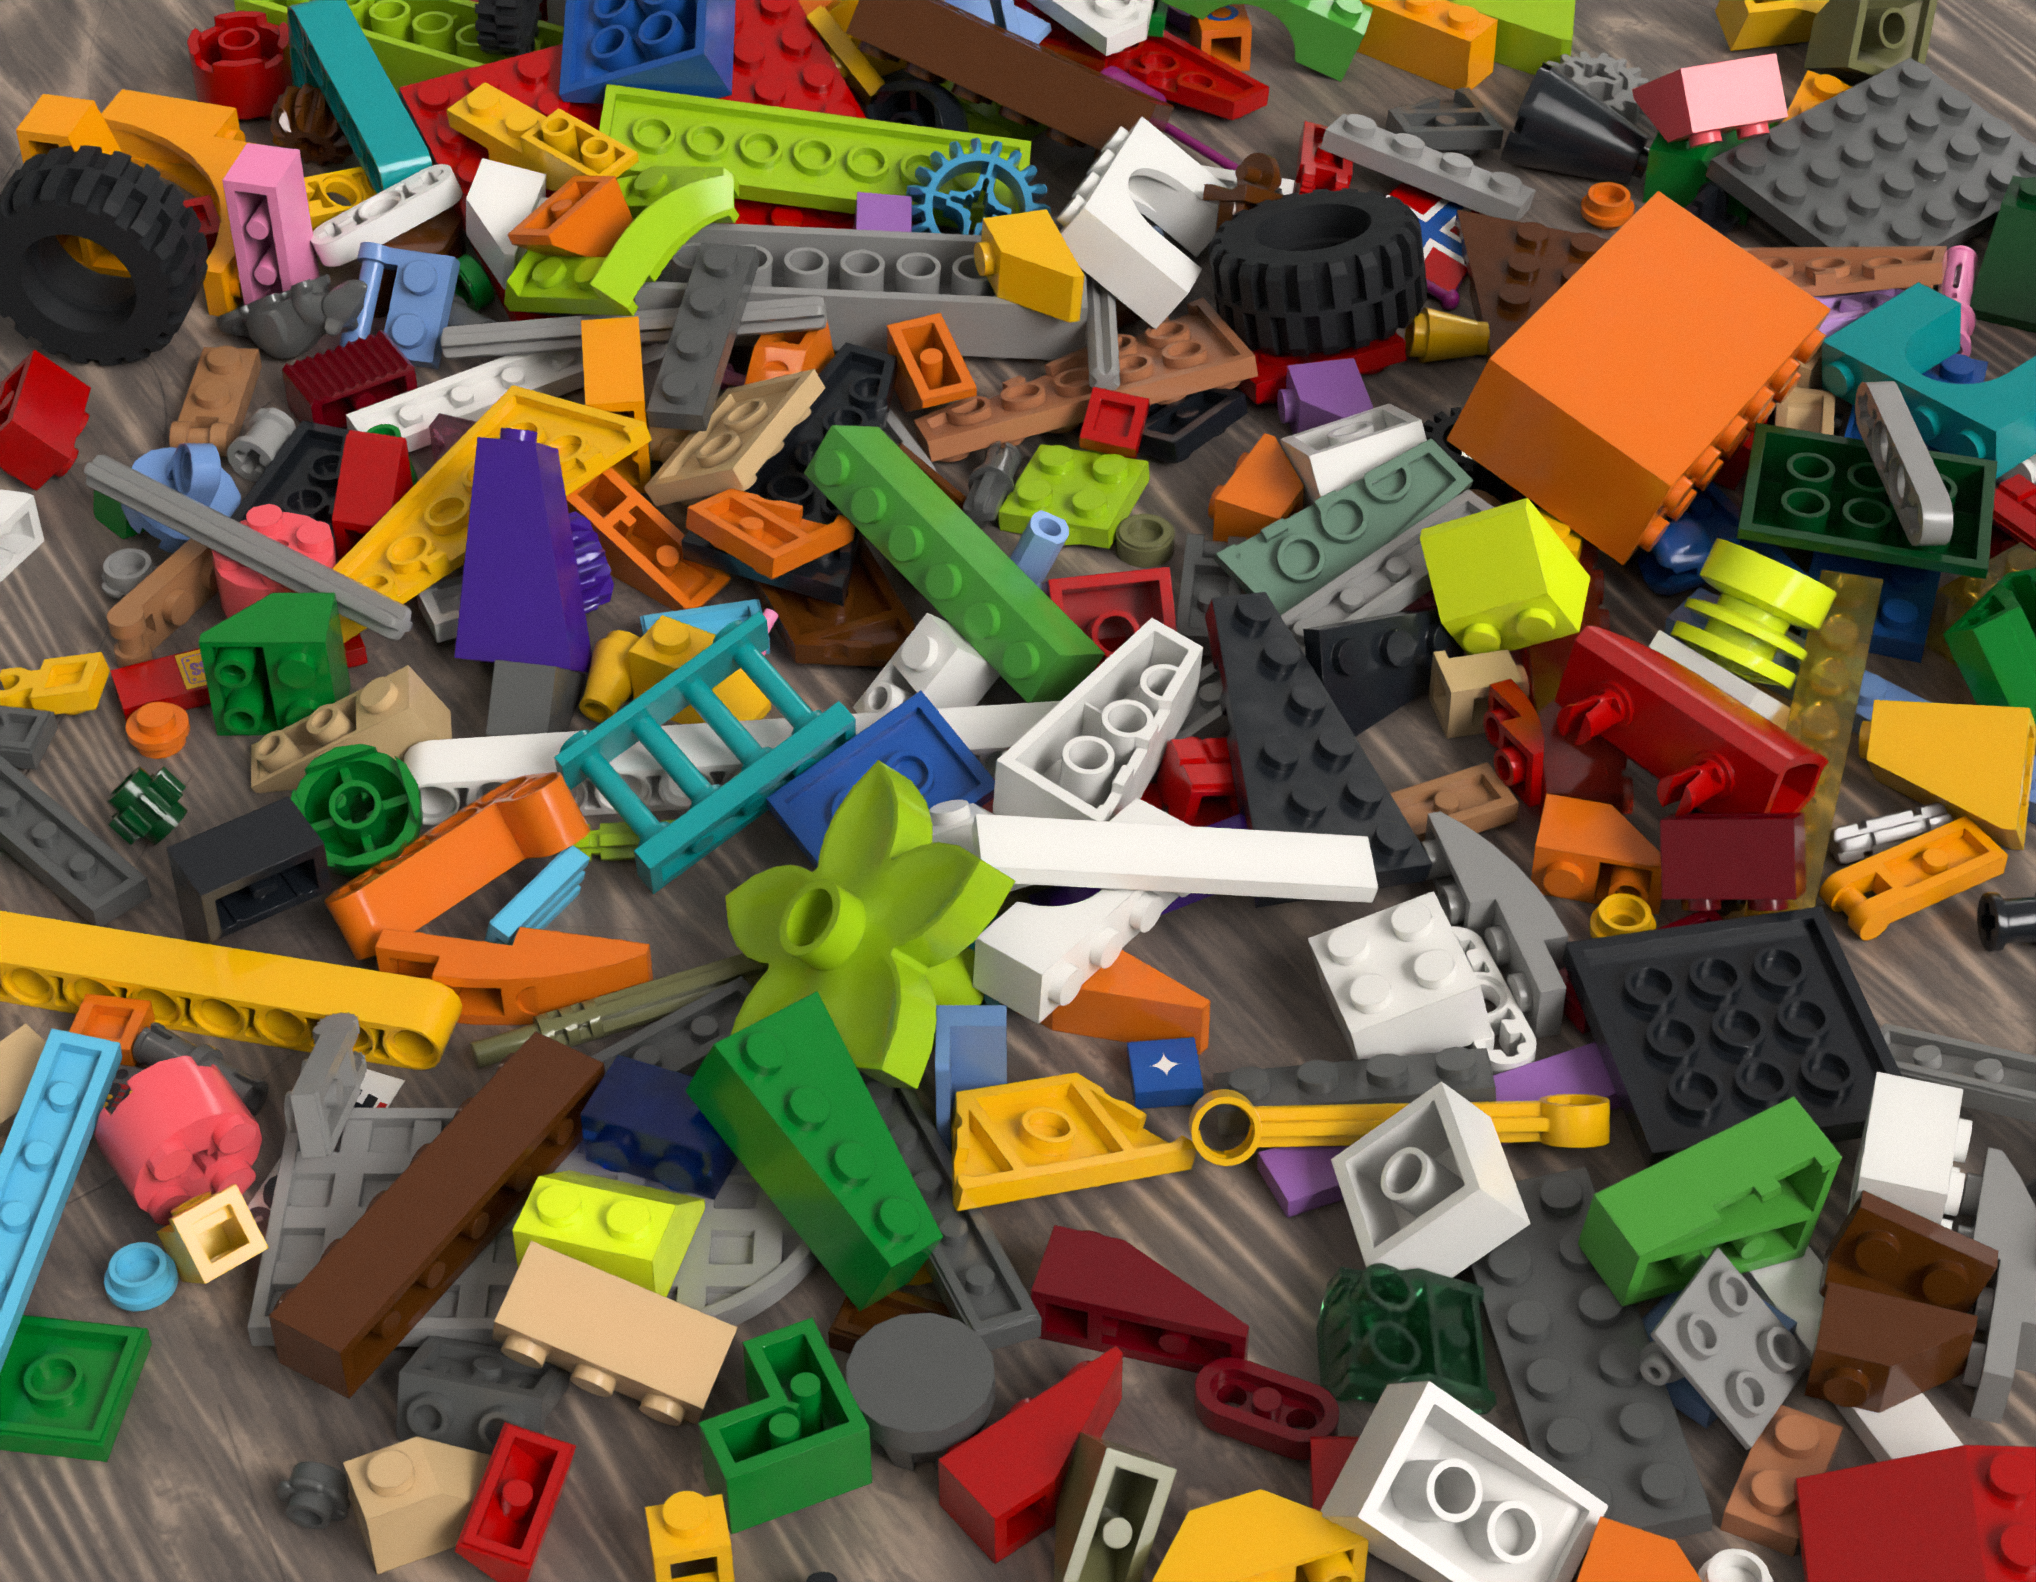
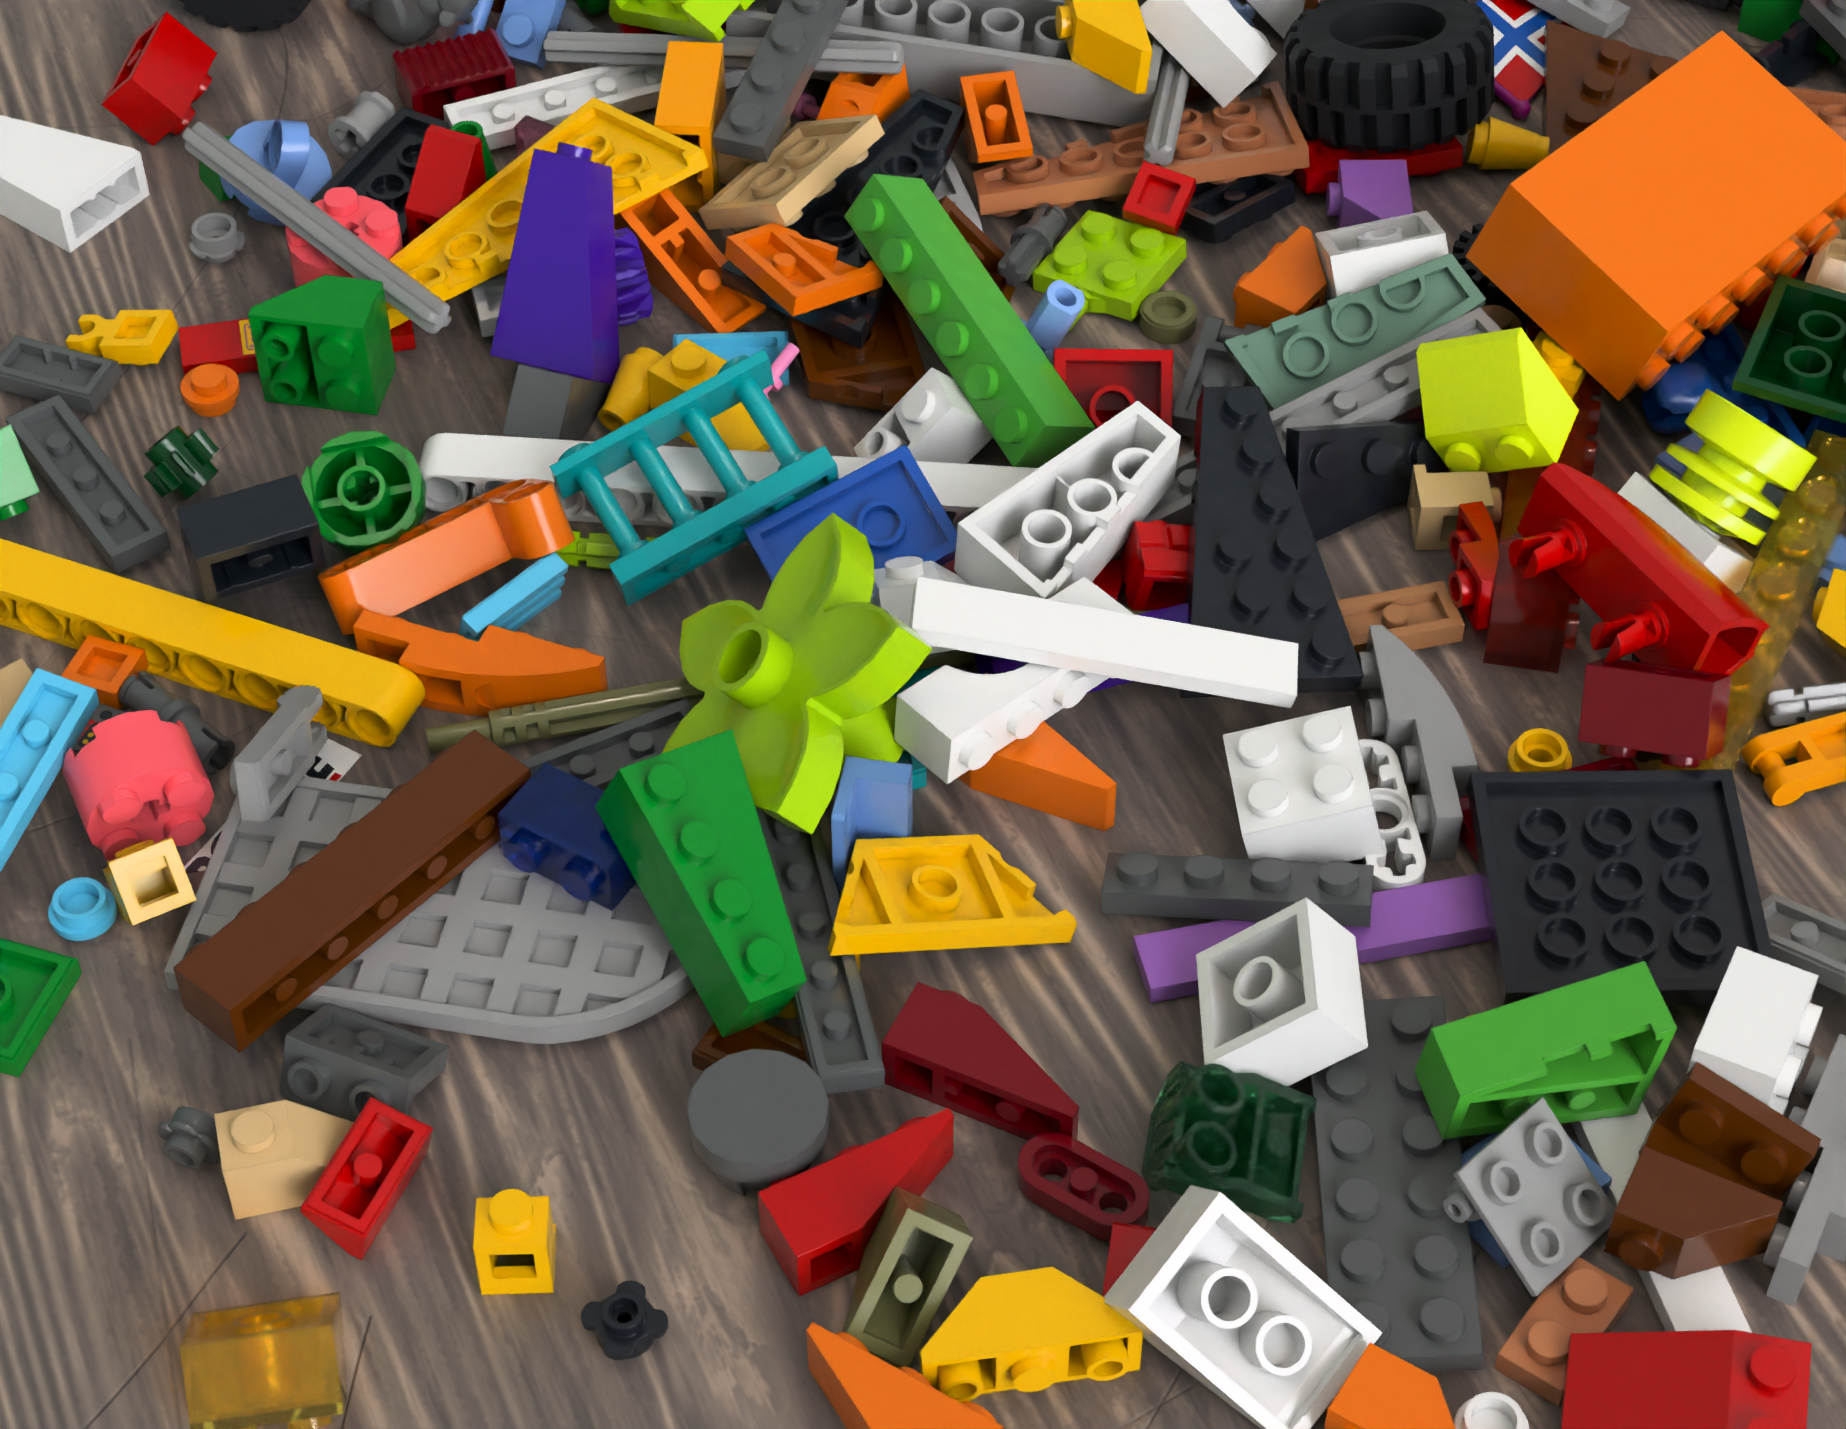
camera: 10 degrees right, 5 degrees up
(162, 603) = (235, 270): medium nougat plate -> none
(217, 397) = (332, 76): medium nougat plate -> none
(384, 714) = (404, 407): tan slope -> none
(610, 1226) = (499, 934): neon yellow slope -> none
(612, 1335) = (484, 1029): tan brick -> none
(794, 1439) = (632, 1155): green brick -> none
(1164, 1072) = (1064, 845): blue tile -> none
(1552, 1120) = (1424, 946): yellow piece -> none
(1593, 852) = (1522, 685): orange slope -> none
(1607, 205) = (1695, 28): orange plate -> none

